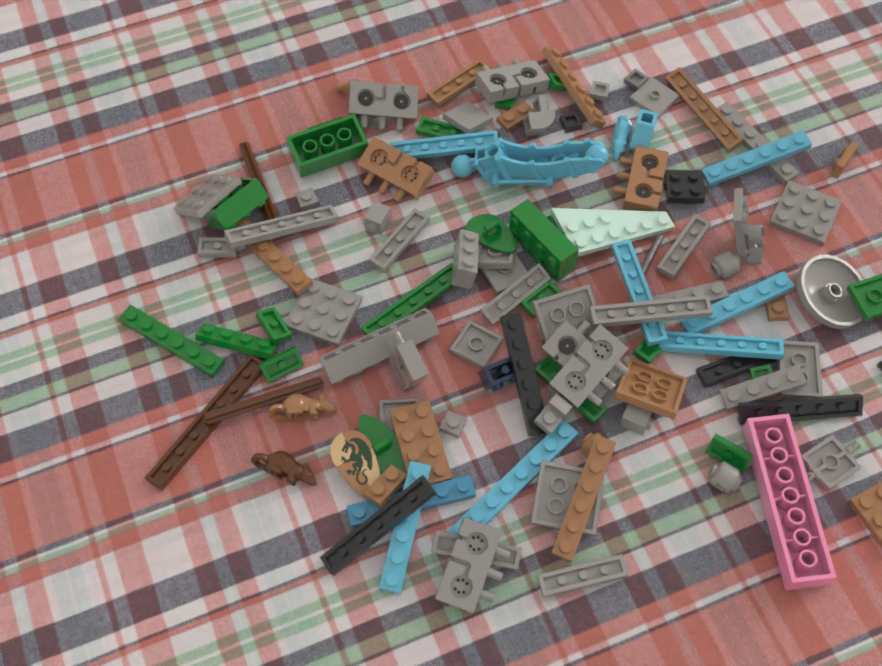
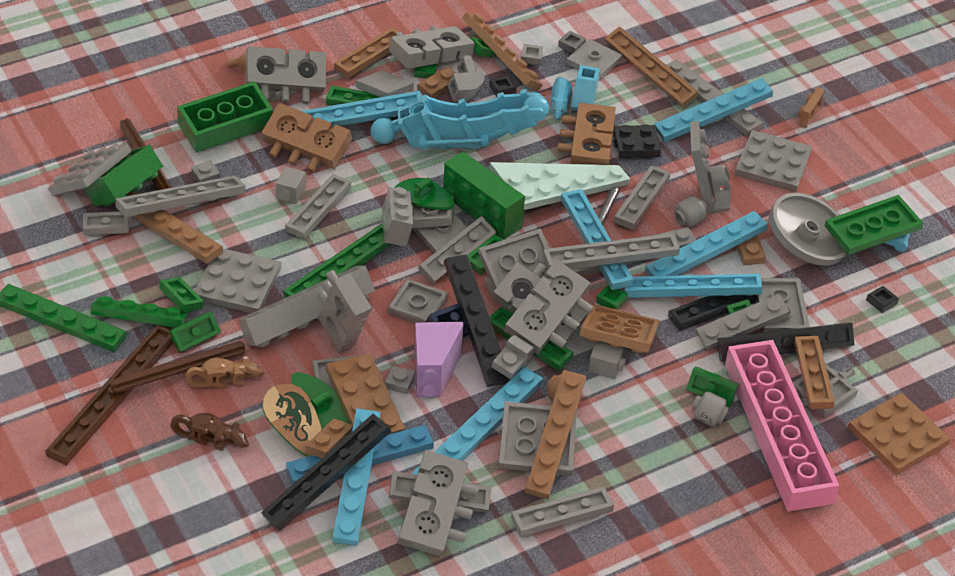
camera: 10 degrees left, 15 degrees down
(485, 407) = (436, 355): none -> lavender slope
(823, 449) = (814, 372): none -> medium nougat plate

